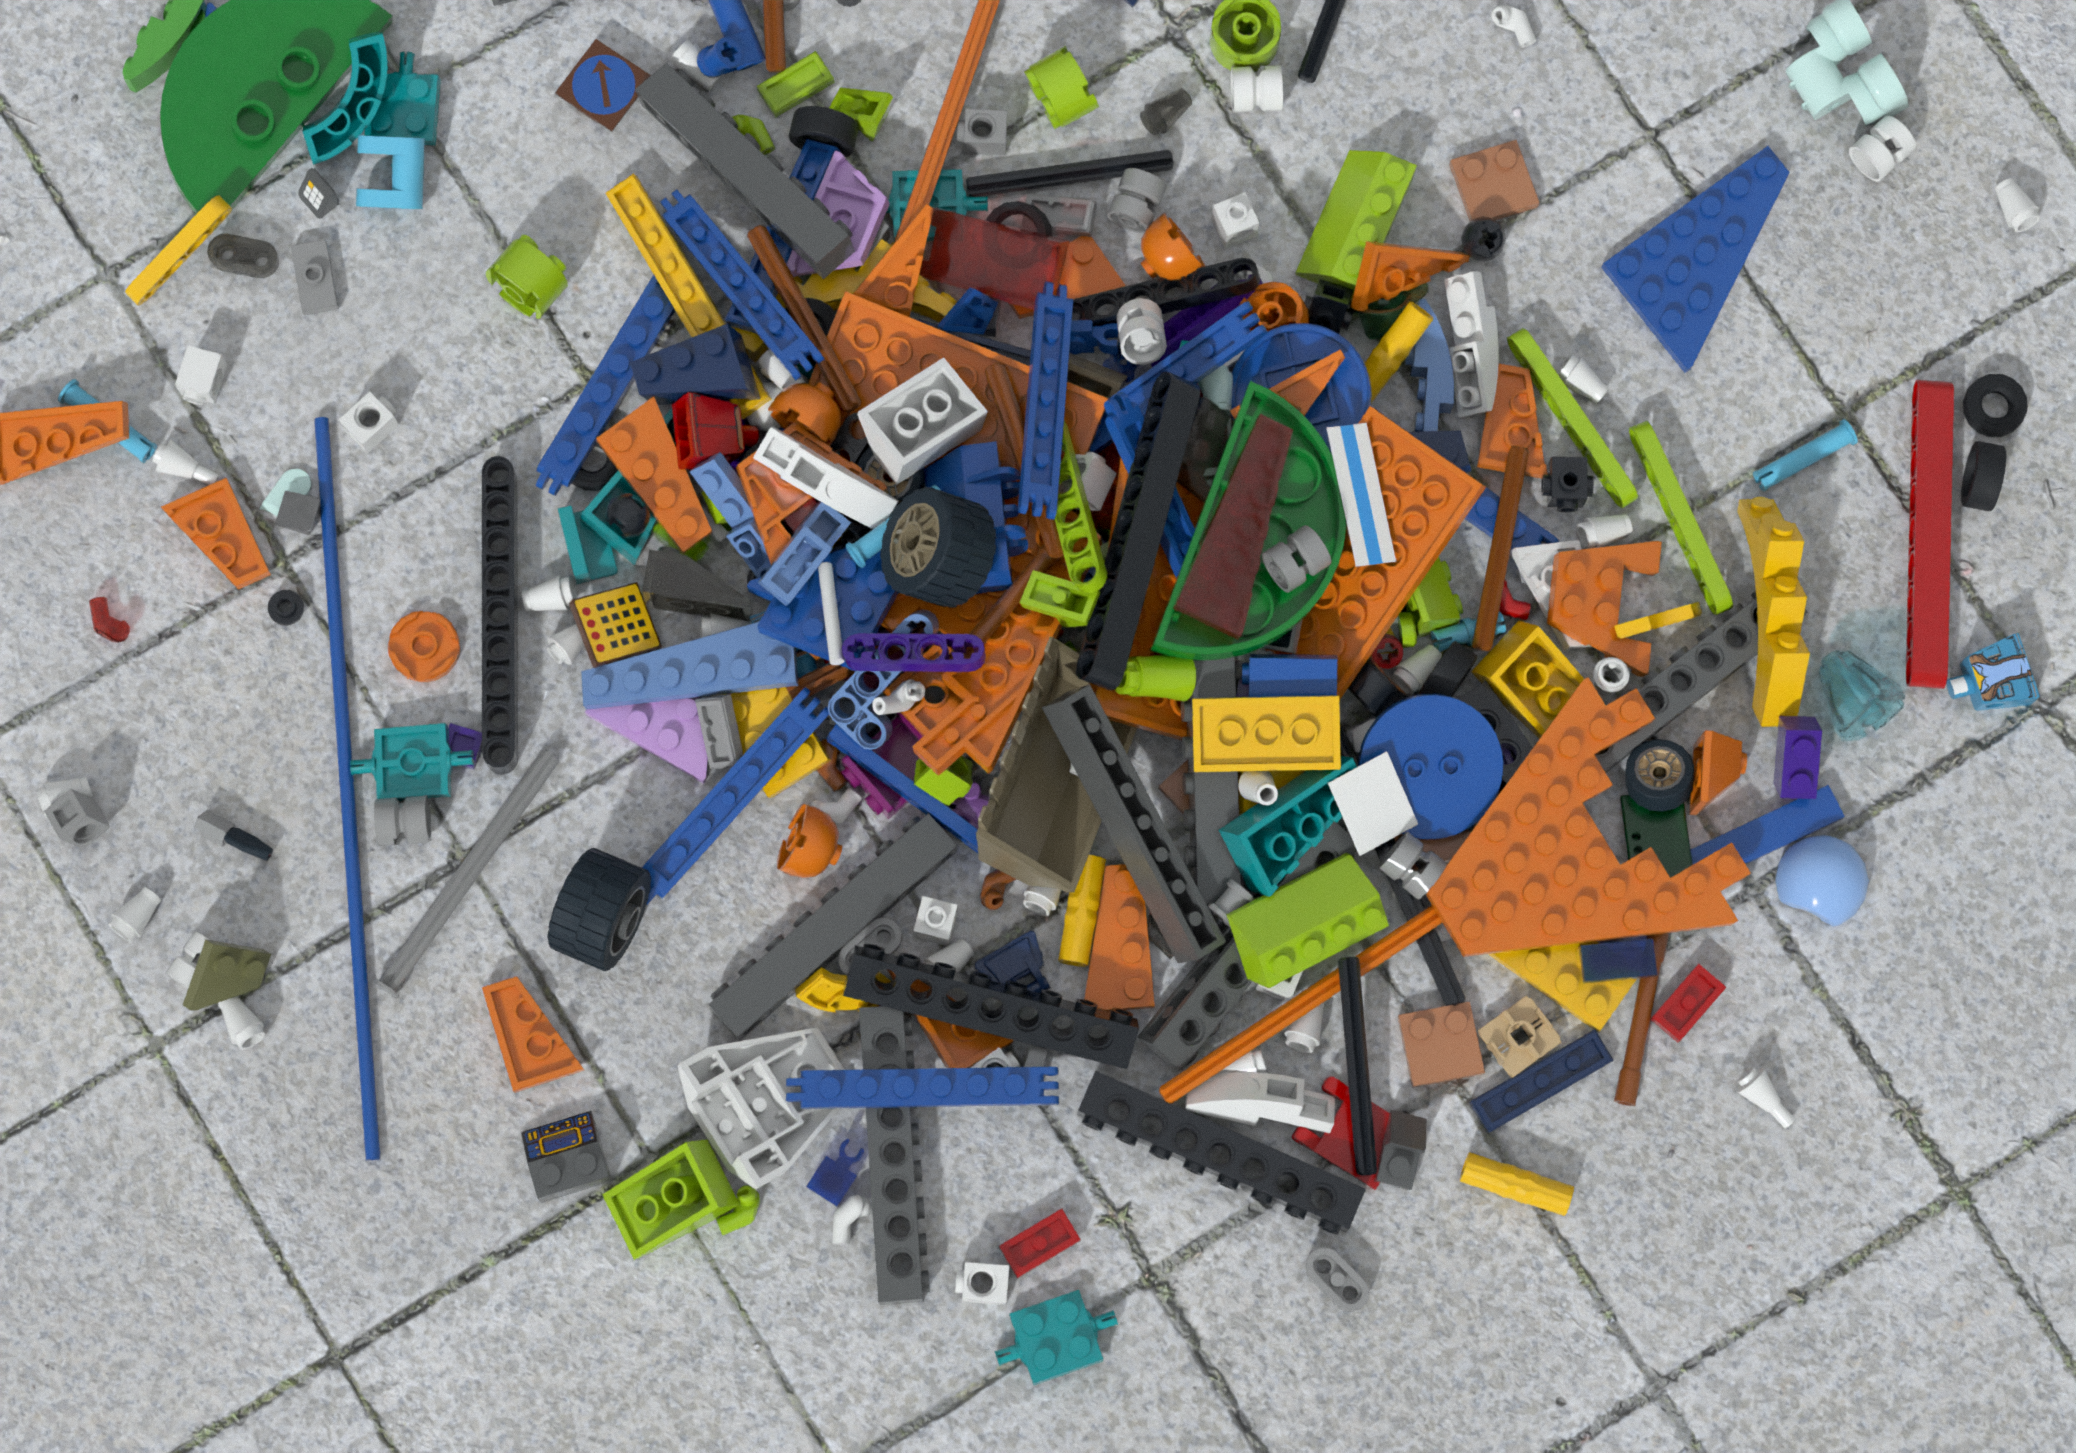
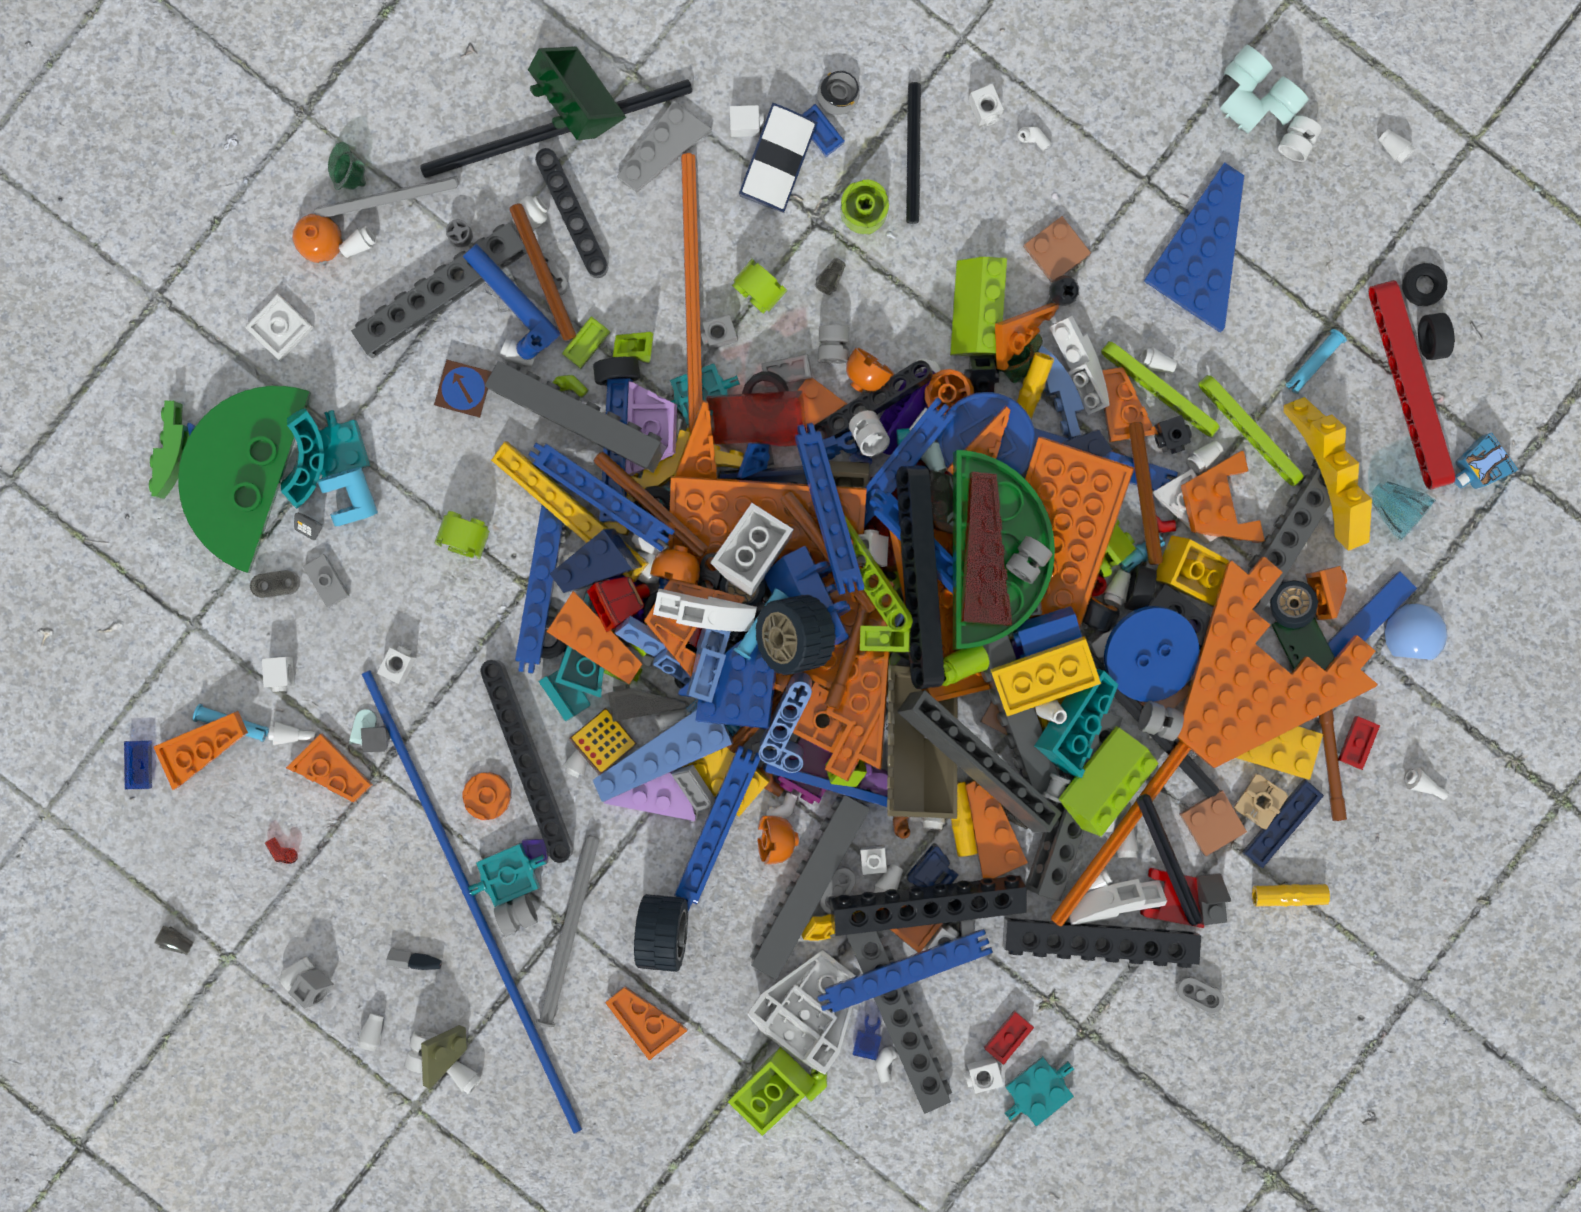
camera: 15 degrees left, 10 degrees up
(178, 250) = (231, 597): yellow beam -> none
(290, 617) = (397, 800): black plate -> none
(550, 595) = (554, 735): white cone -> none
(565, 1157) = (696, 1089): dark grey slope -> none
(627, 515) = (588, 676): black piece -> none
(830, 612) = (740, 699): white bar -> none
(900, 699) = (803, 734): white arm -> none
(913, 656) = (803, 705): dark purple beam -> none
(1067, 173) = (783, 340): black axle -> none
(1235, 220) = (901, 335): white brick -> none
(1256, 88) = (884, 241): white wheel -> none
(1361, 494) = (1053, 499): white sticker -> none
(1373, 803) = (1125, 692): white sticker -> none
(1615, 670) = (1248, 552): white cone -> none
(1618, 961) = (1309, 735): clear blue plate -> none
(1658, 620) = (1259, 503): yellow tile -> none
(1797, 757) = (1378, 563): dark purple brick -> none

